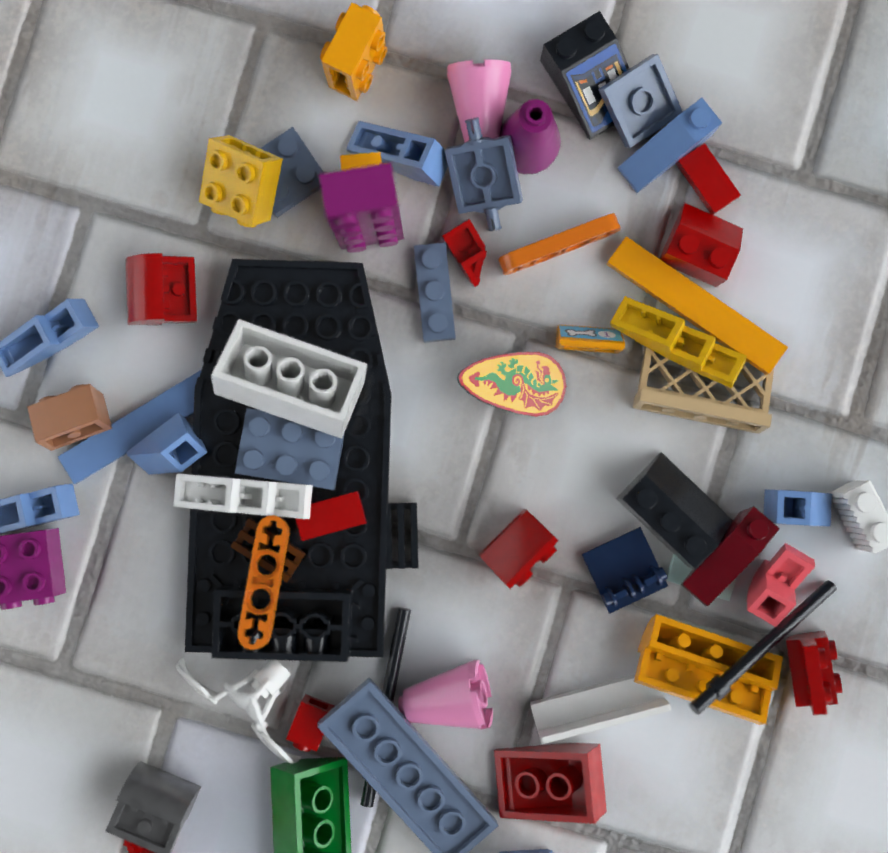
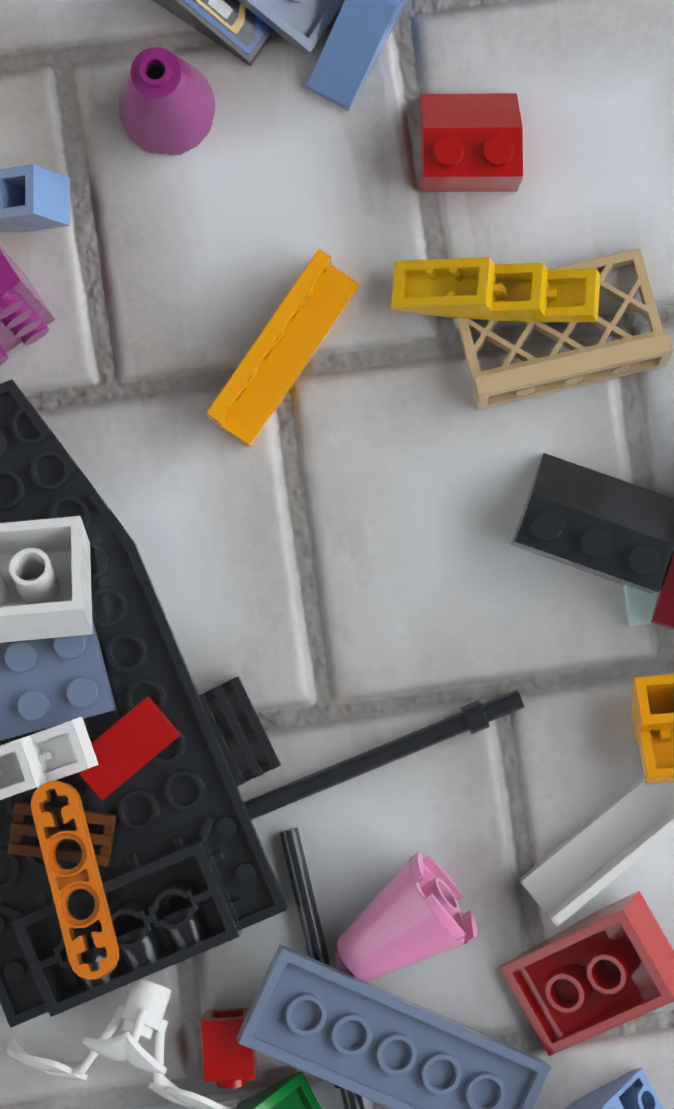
camera: 25 degrees left, 0 degrees up
(434, 292) = (131, 374): sand blue plate -> none
(467, 250) = (149, 295): red slope -> none
(480, 92) = (73, 82): bright pink cone -> none
(484, 174) = (124, 181): sand blue plate -> none
(516, 382) = (300, 448): shield -> none
(519, 549) = (406, 674): red slope -> none
(534, 317) = (283, 349): none -> light orange fence
(546, 592) = (473, 718): none -> black bar
(559, 244) = (272, 230): orange beam -> none
(589, 339) = (374, 342): slope -> none
(625, 570) = (566, 637): dark blue hinge -> none
(696, 305) = (499, 229): light orange tile -> none
(708, 179) = (438, 47): red tile -> none

